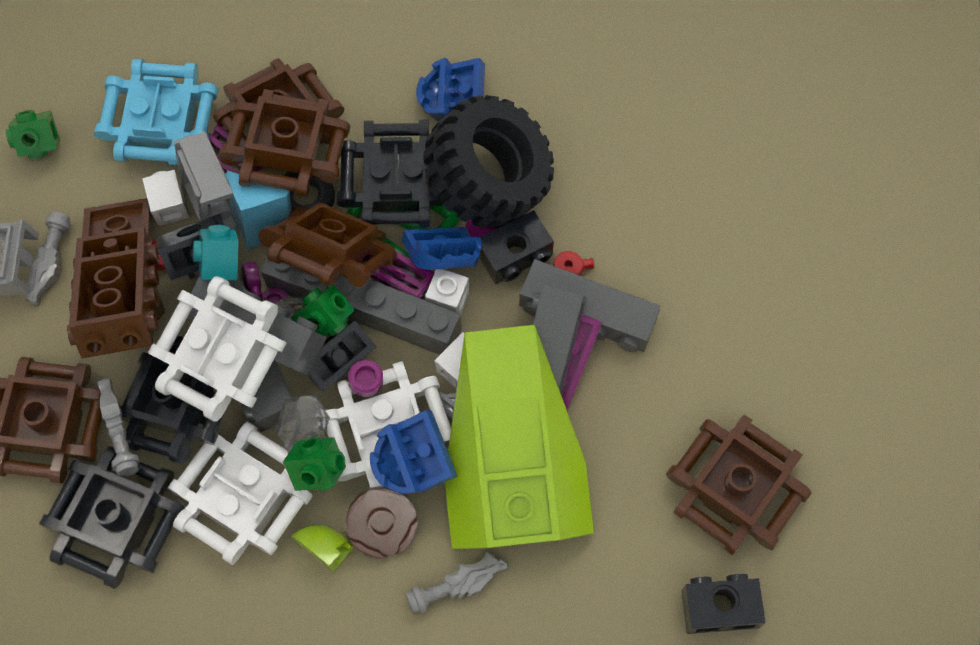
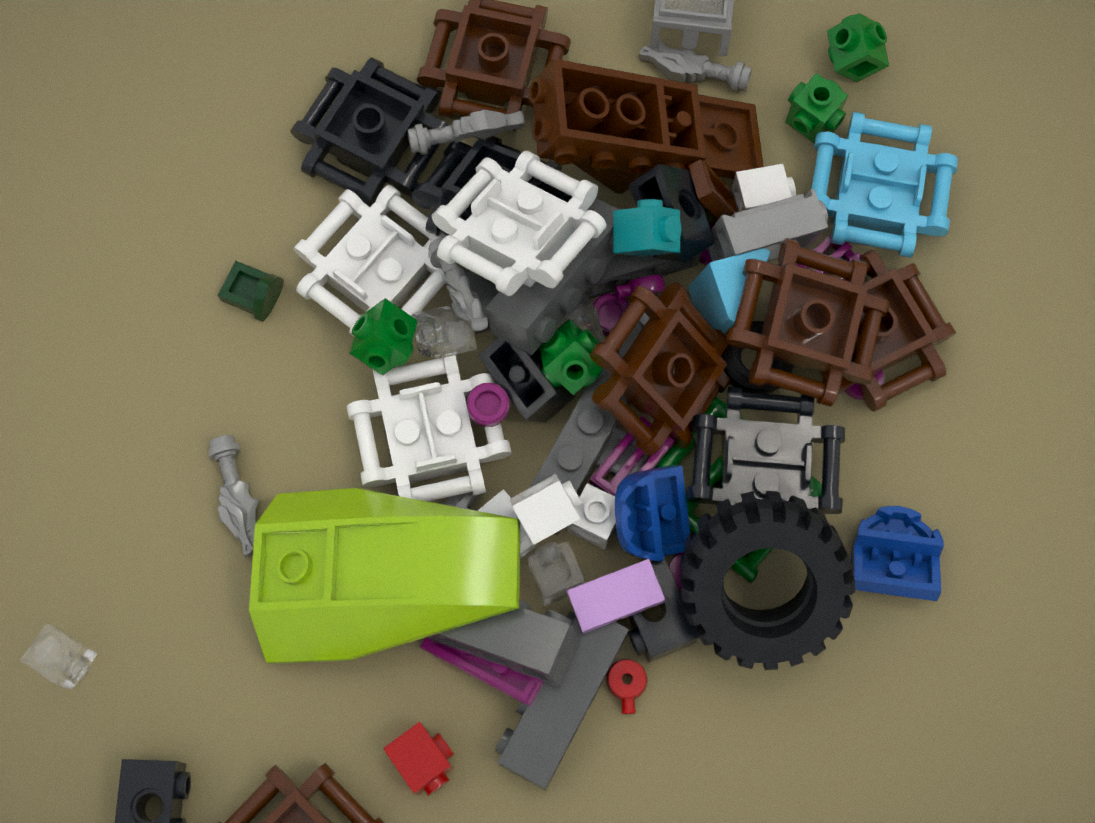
camera: 95 degrees right, 5 degrees up
(89, 161) = (816, 107): none -> green brick
(171, 224) = (712, 190): none -> reddish brown tile
(268, 602) = (251, 290): none -> dark green tile
(273, 400) = (465, 301): none -> light grey piece
(324, 544) = (305, 350): lime brick -> none
(381, 522) = (316, 414): tile -> none
(412, 456) = (376, 447): blue slope -> none
(452, 314) = (546, 508): none -> white brick
(495, 312) = (554, 571): none -> clear brick
(511, 267) = (616, 596): none -> lavender tile
(651, 402) = (421, 759): none -> red brick

